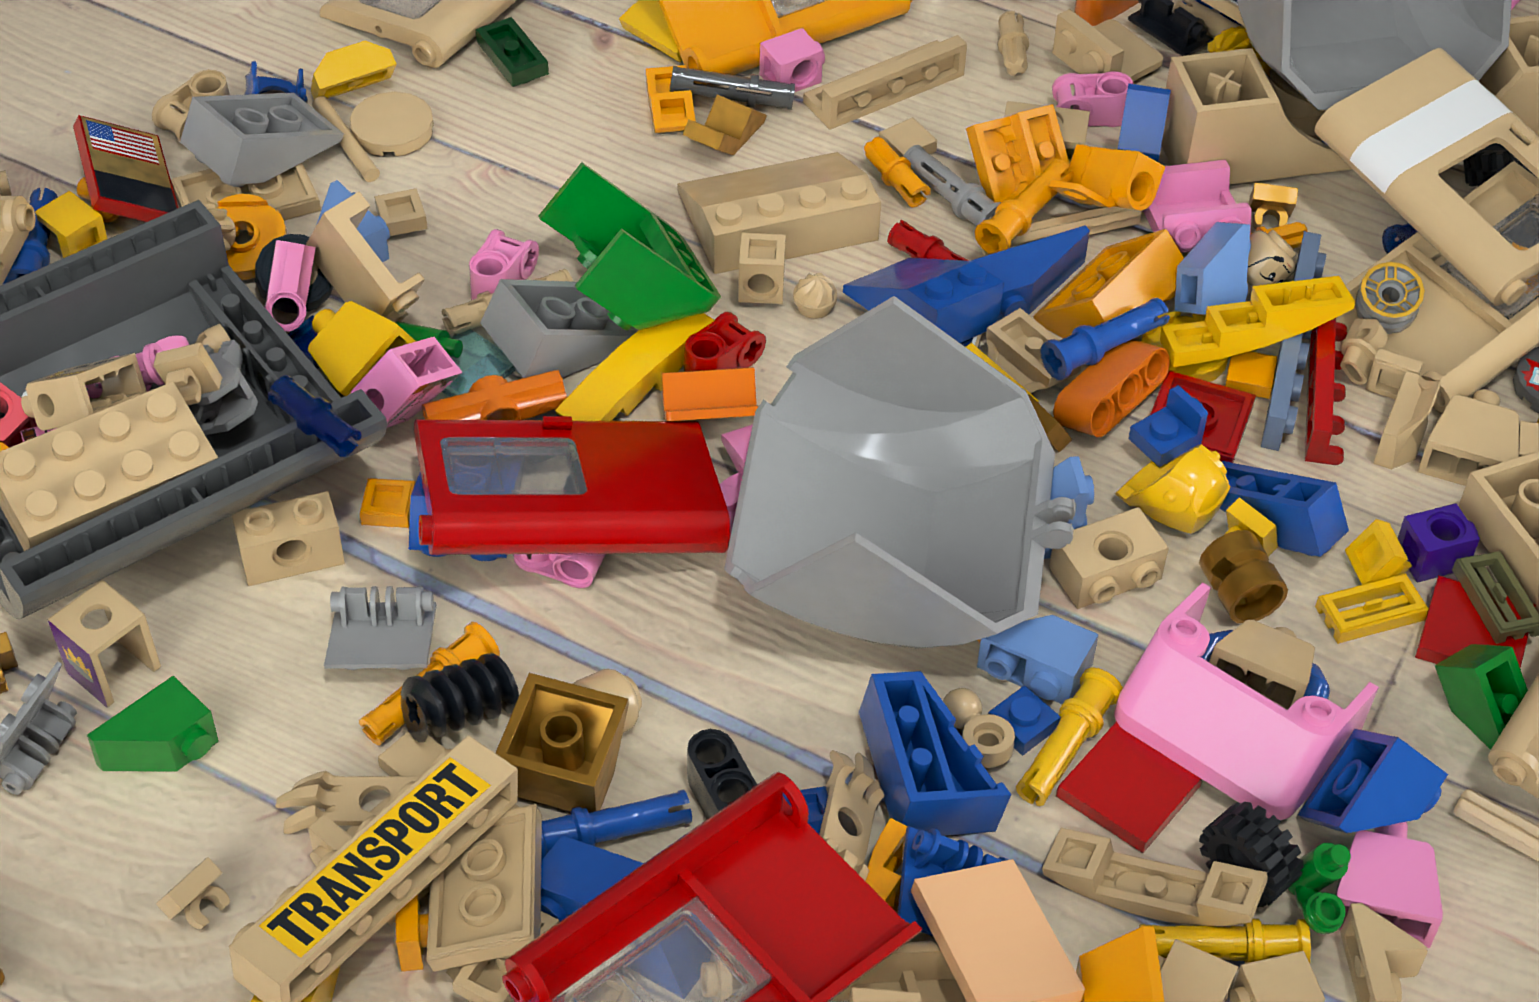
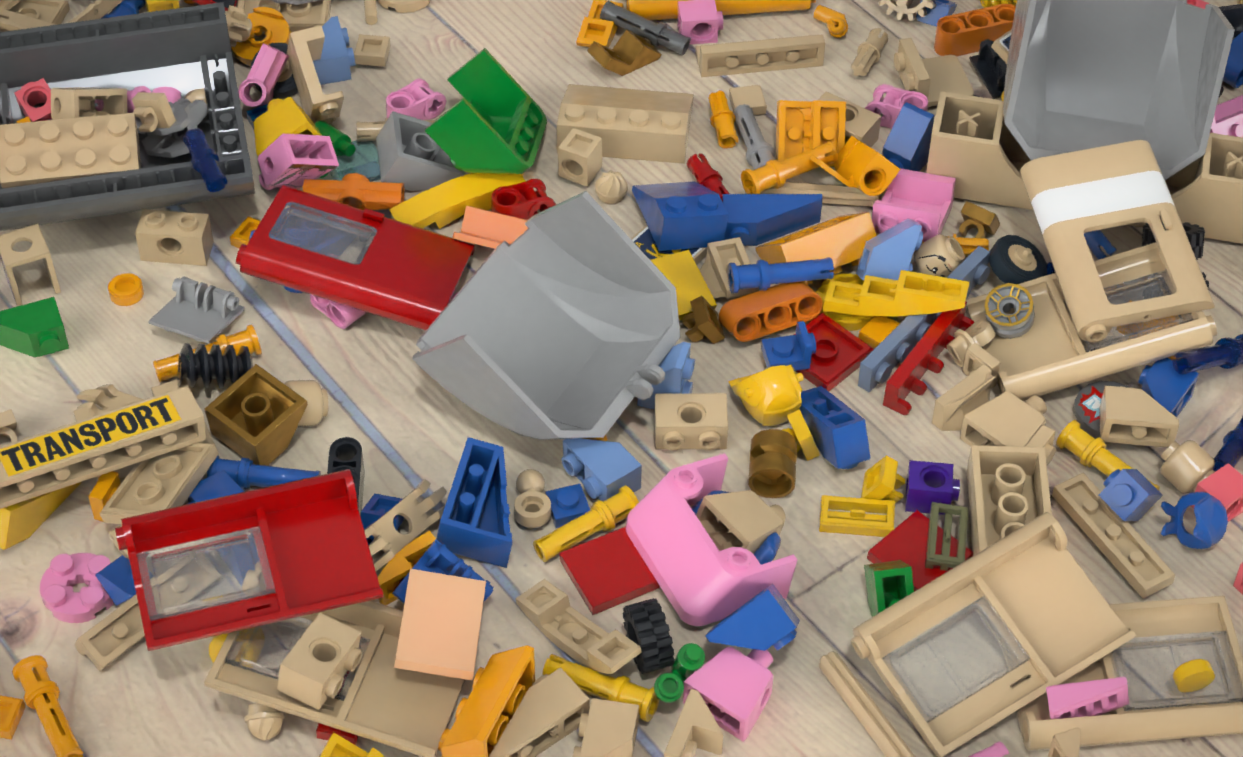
camera: 25 degrees right, 0 degrees up
(254, 632) = (125, 289): none -> light orange tile
(948, 17) = (835, 20): none -> light orange arm
(1350, 238) = (1016, 260): none -> black wheel

